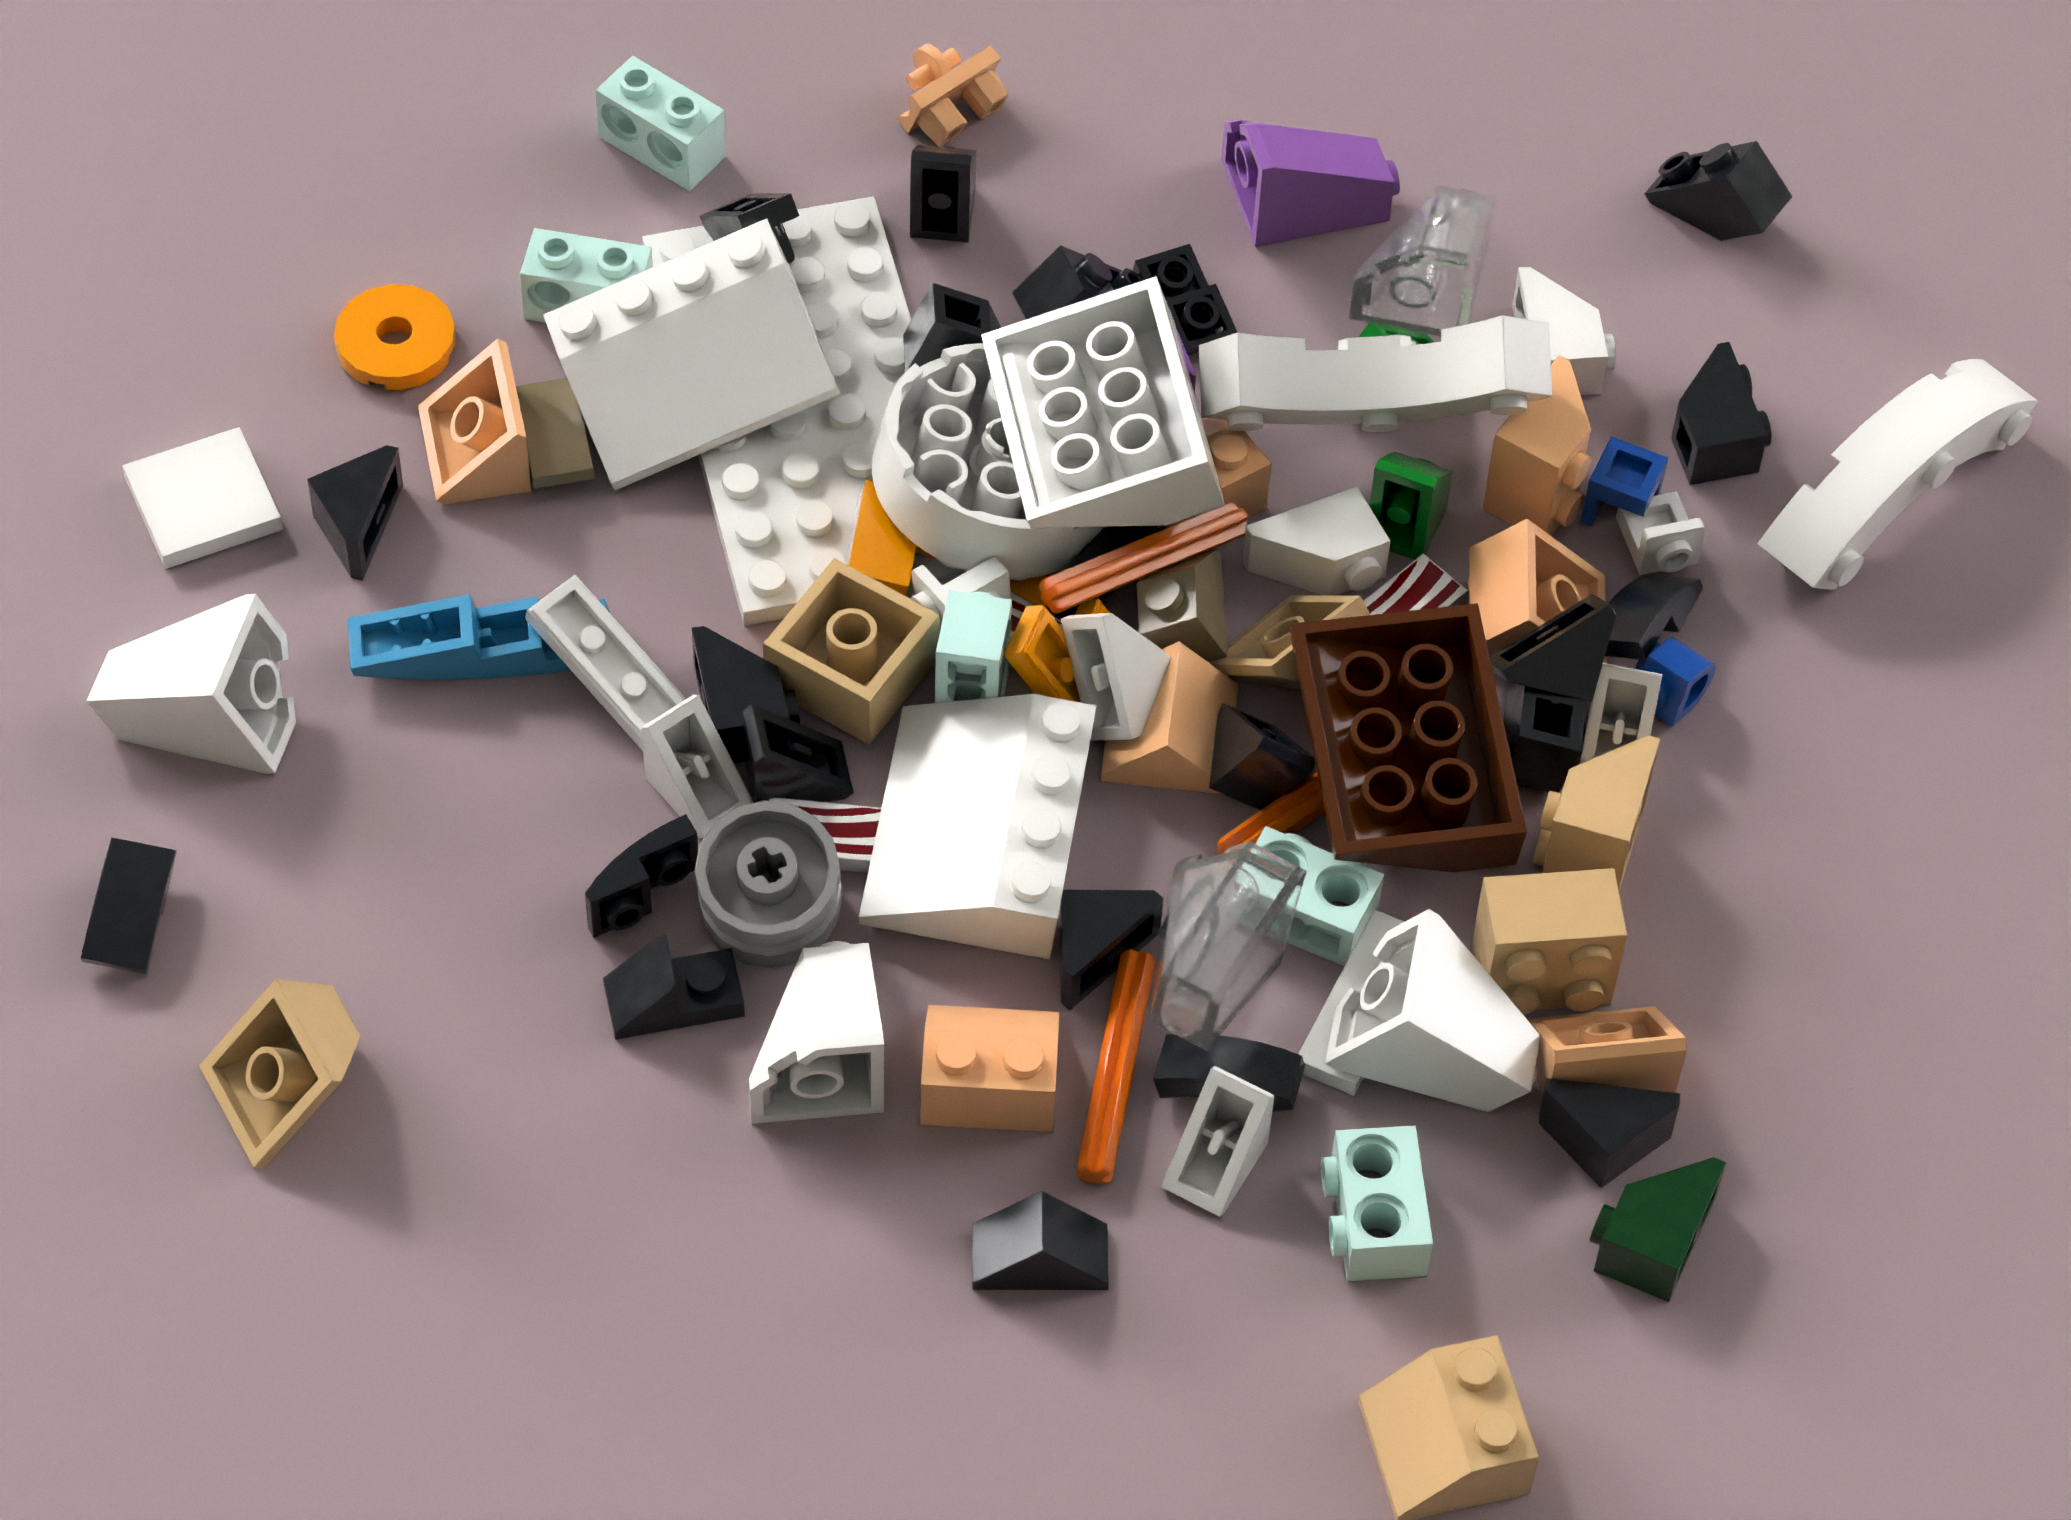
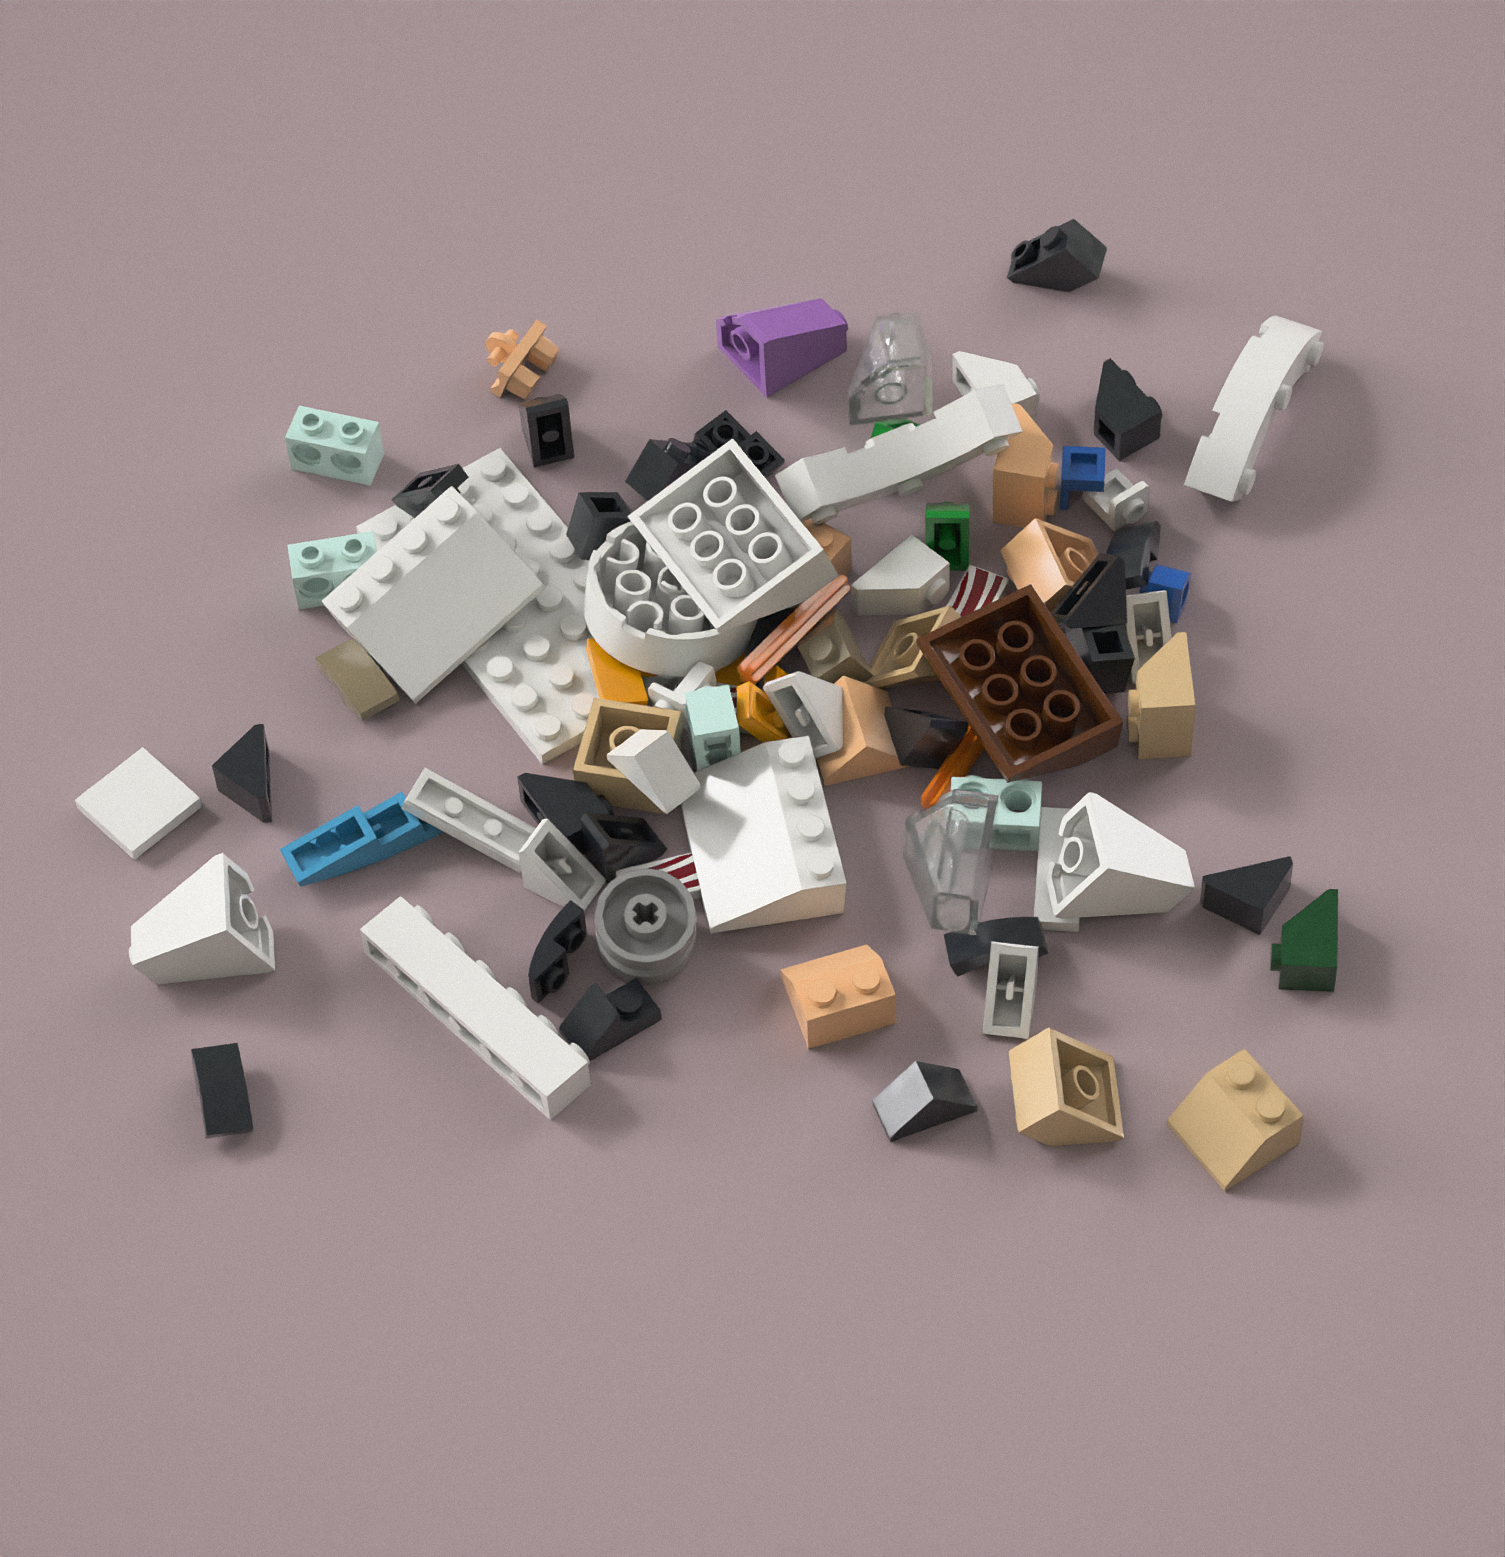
camera: 15 degrees left, 0 degrees up
(280, 1064) = (376, 1158): tan slope -> none
(395, 310) = (213, 631): light orange tile -> none
(477, 431) = (308, 694): light nougat slope -> none
(506, 915) = (477, 1007): none -> white brick
(823, 1042) = (730, 1014): white slope -> none
(869, 679) = (656, 768): none -> white slope
(1097, 930) = (873, 884): black slope -> none
(1115, 1067) = (919, 966): orange axle -> none
(1233, 1306) = (1064, 1091): none -> tan slope
(1386, 1203) = (1136, 990): light aqua brick -> none
(1552, 938) = (1168, 783): tan brick -> none
(1611, 1048) = (1233, 842): light nougat slope -> none

